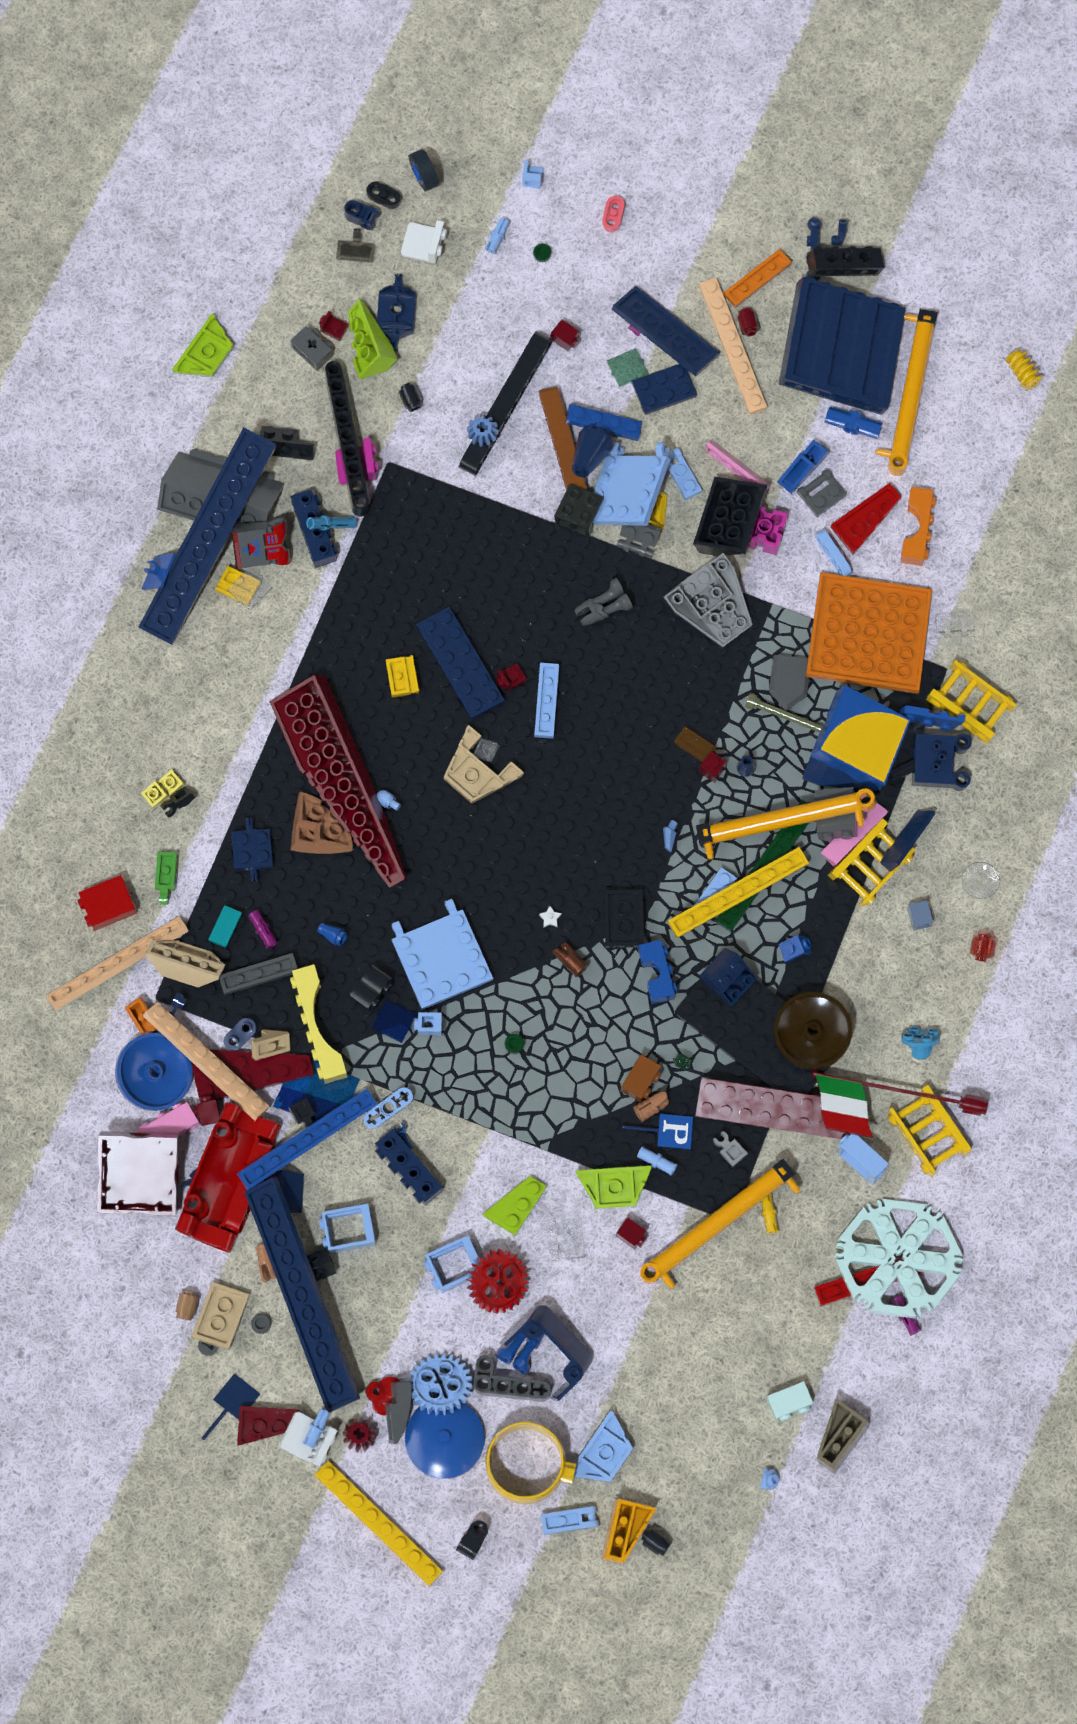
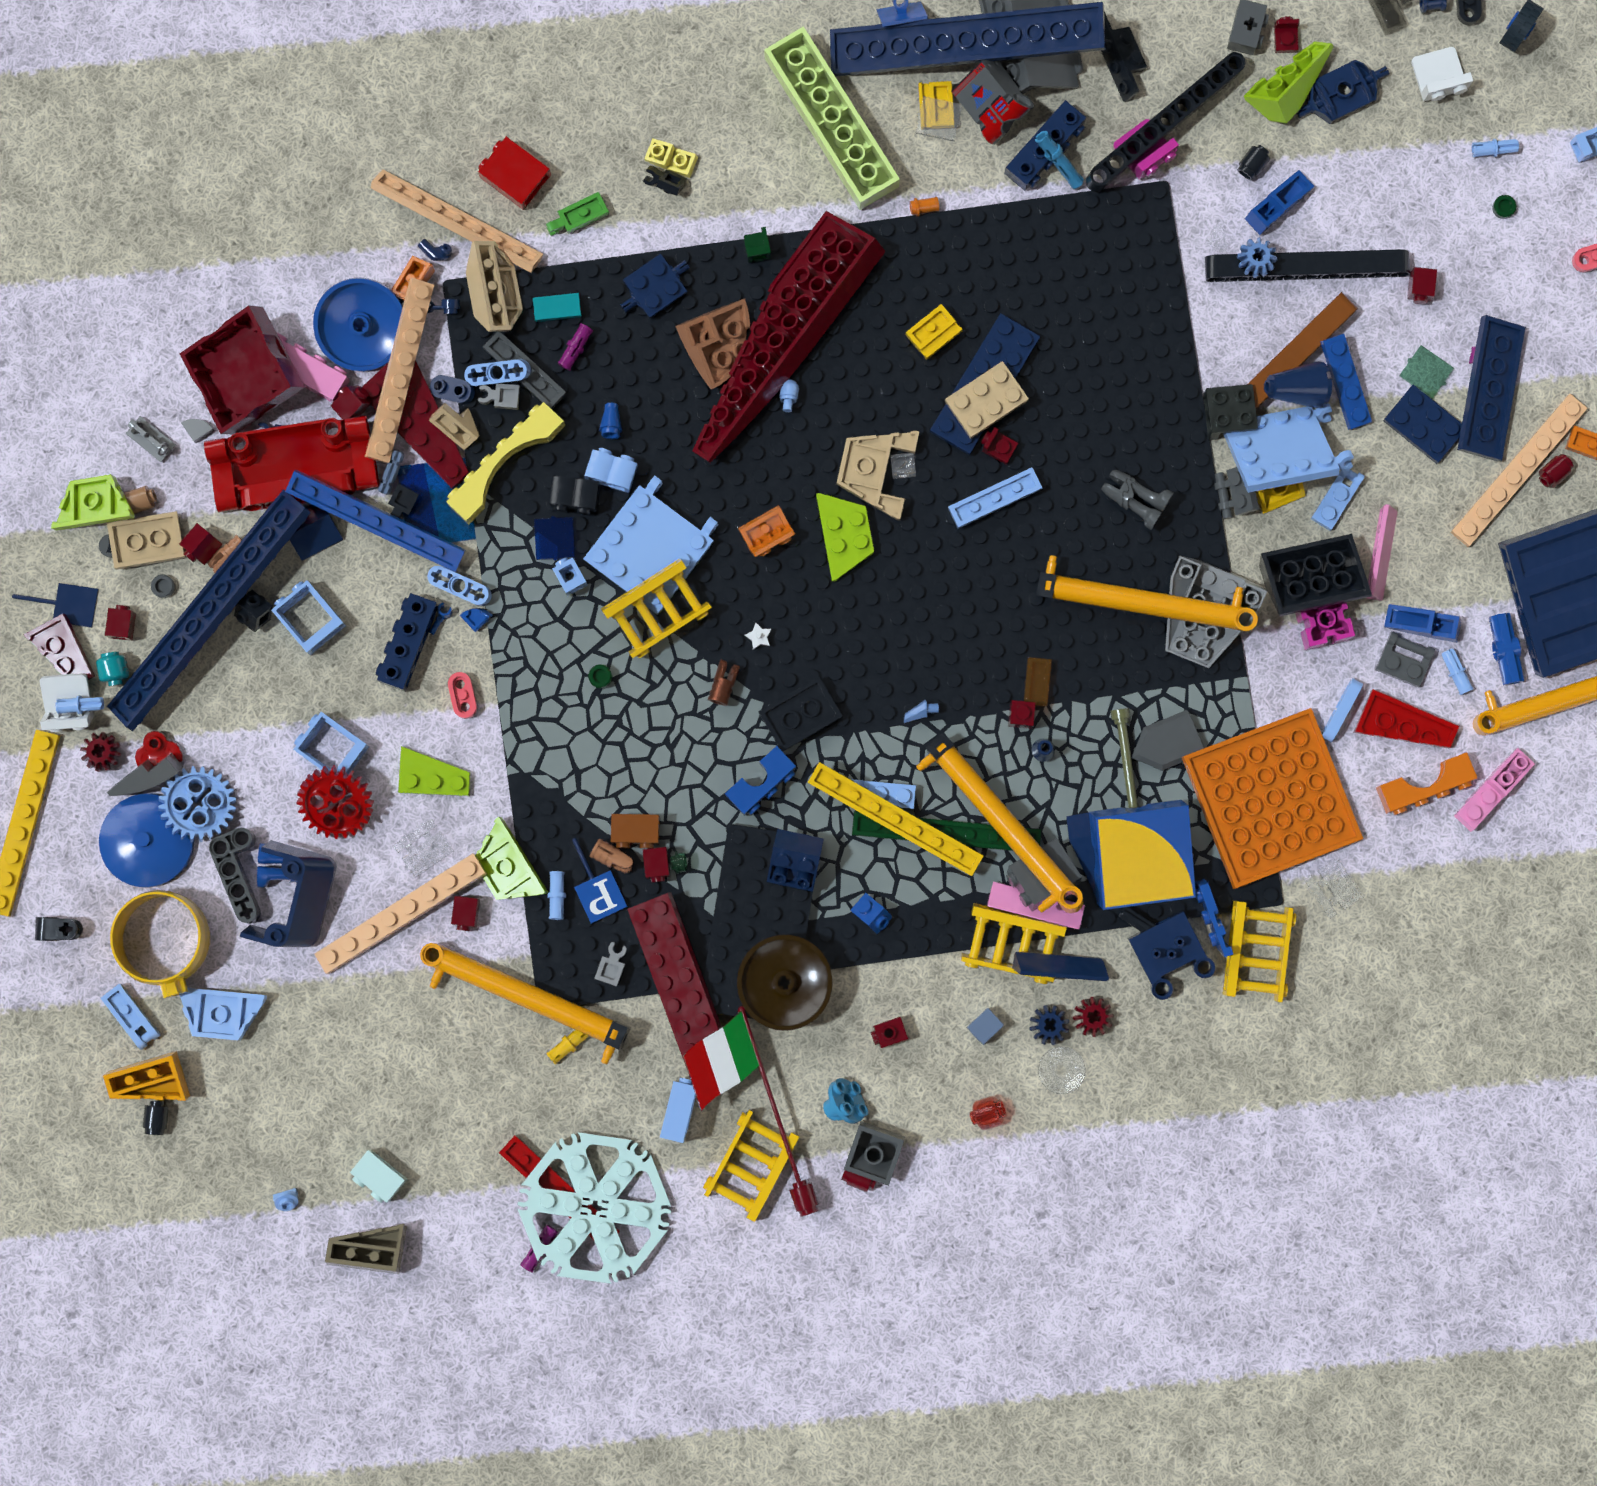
camera: 60 degrees right, 10 degrees up
(131, 992) = (435, 253): none -> dark blue arm
(145, 1273) = (149, 438): none -> light grey hinge
(157, 1235) = (197, 428): none -> light grey tile
(169, 1339) = (92, 502): none -> lime wing
(204, 660) = (831, 118): none -> yellowish green brick
(247, 1277) = (200, 544): none -> dark red brick
(260, 981) = (488, 367): none -> light blue beam
(266, 762) = (757, 246): none -> dark green panel
(269, 999) = (504, 397): none -> light grey plate
(271, 1368) = (120, 623): none -> dark red brick
(276, 1111) = (391, 472): none -> sand blue axle
(302, 1392) = (112, 668): none -> teal head
(305, 634) = (924, 205): none -> orange pin
(369, 952) = (611, 470): none -> light blue brick
(418, 1109) = (476, 618): none -> blue tile
(449, 396) = (1279, 202): none -> blue slope
(470, 1150) = (463, 695): none -> coral plate
(473, 984) = (655, 585): none -> yellow fence
(474, 666) = (986, 400): none -> tan plate
(478, 869) = (766, 532): none -> orange bracket
(511, 817) = (844, 533): none -> lime wing
(606, 1281) = (400, 913): none -> light nougat plate
(674, 1077) = (656, 864): none -> dark red brick
(681, 639) = (1143, 601): none -> light orange piece
(849, 463) = (1456, 671): none -> light blue axle
(887, 983) = (889, 1032): none -> dark red brick
(946, 484) = (1494, 789): none -> bright pink slope
(947, 834) = (1095, 1024): none -> dark red gear
(952, 871) = (1041, 1024): none -> dark blue gear
(968, 1039) = (874, 1153): none -> dark grey slope
(979, 1061) = (857, 1181): none -> dark red brick

